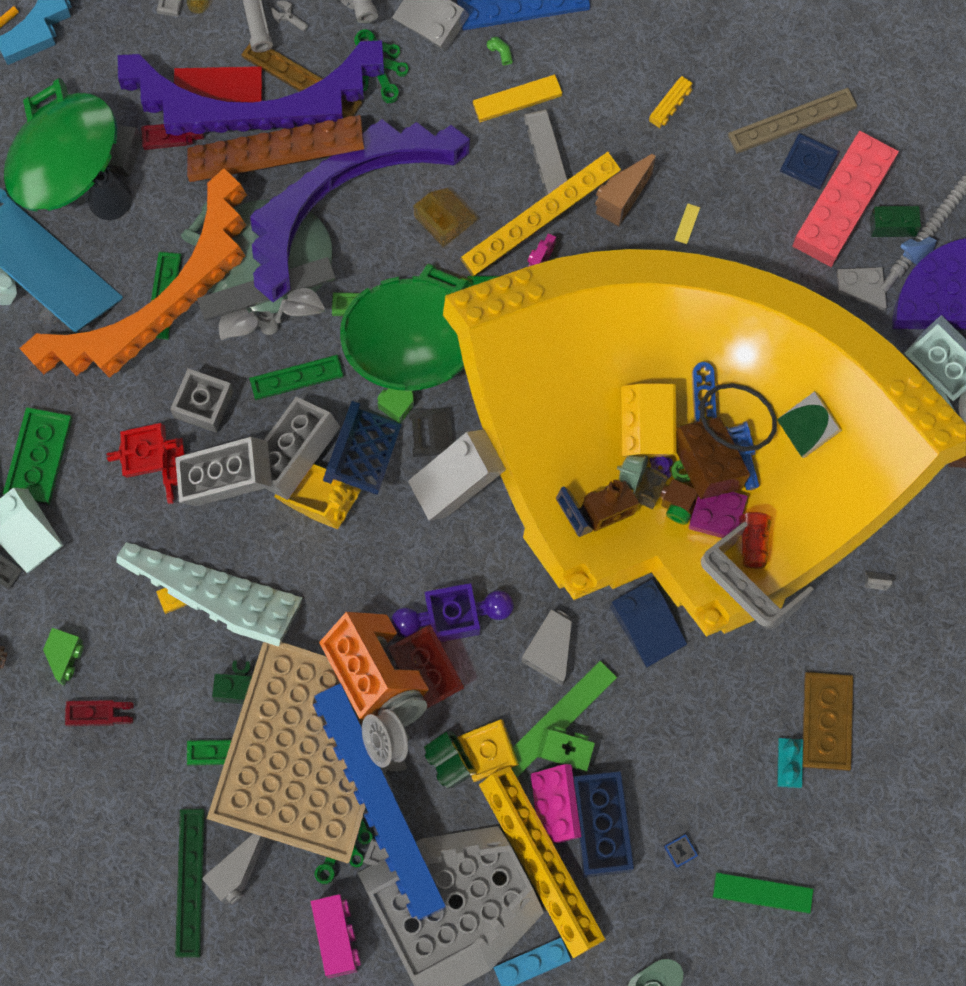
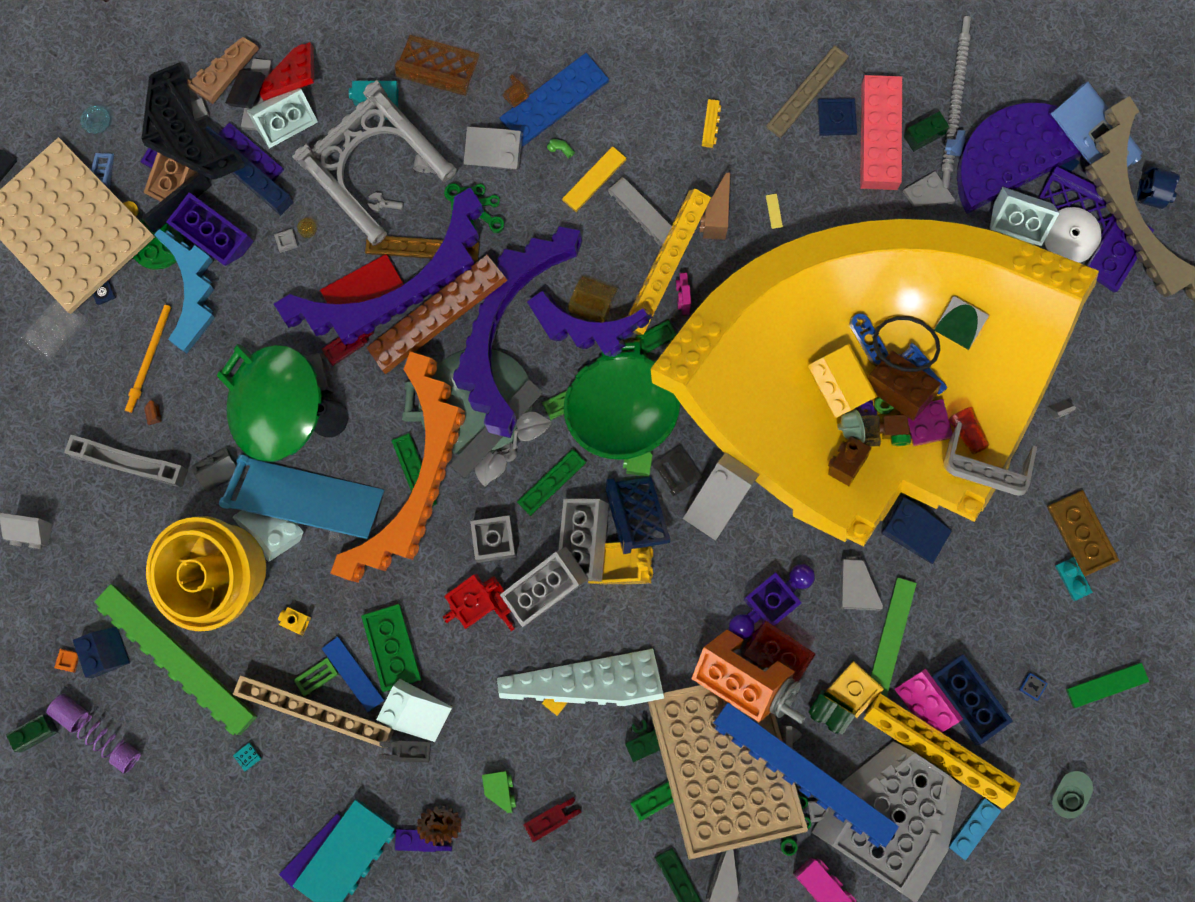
camera: 25 degrees left, 5 degrees up
(384, 738) = (788, 728): light grey wheel -> none
(412, 243) = (607, 334): none -> dark purple arch
(551, 749) = (922, 657): bright green brick -> none
(573, 512) = (827, 480): dark blue slope -> none

